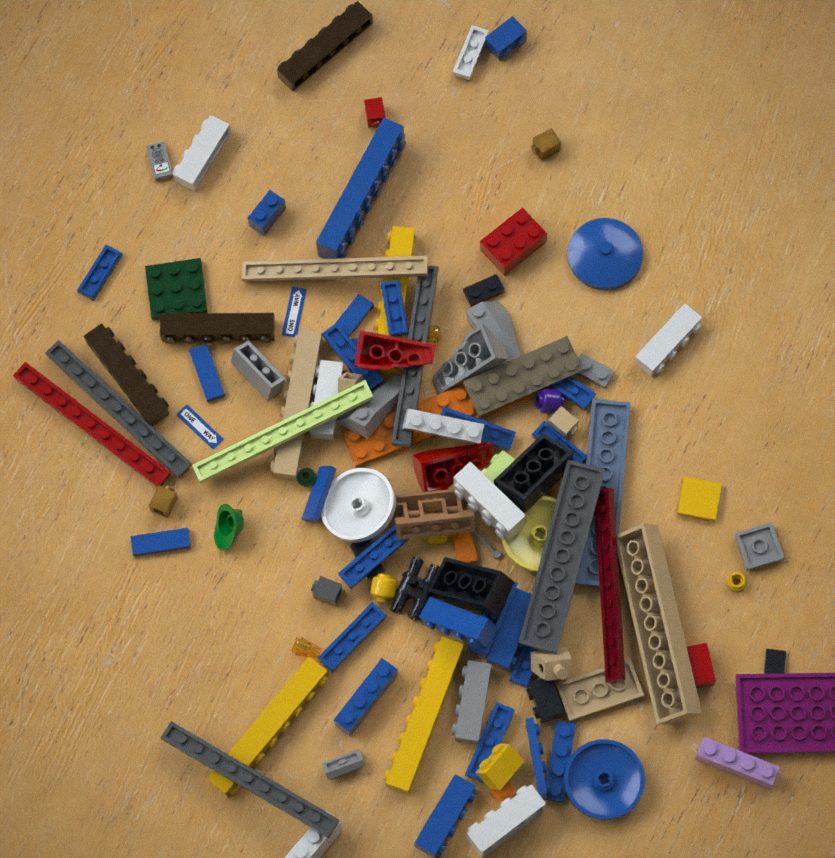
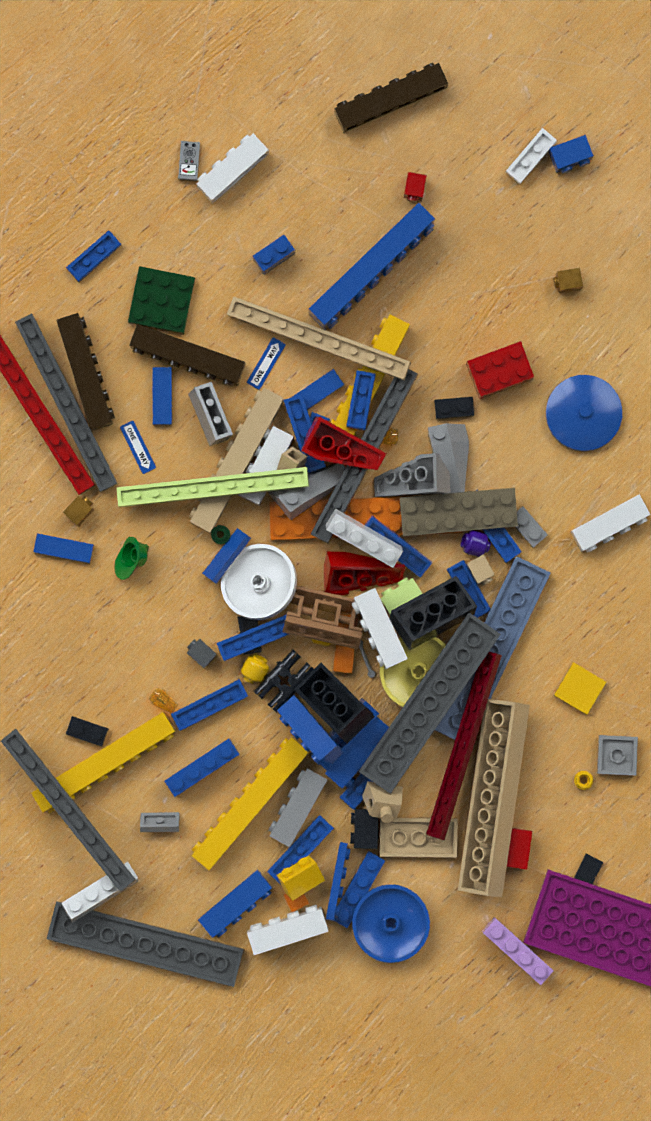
camera: 15 degrees right, 15 degrees up
(241, 704) = (87, 731): none -> black plate

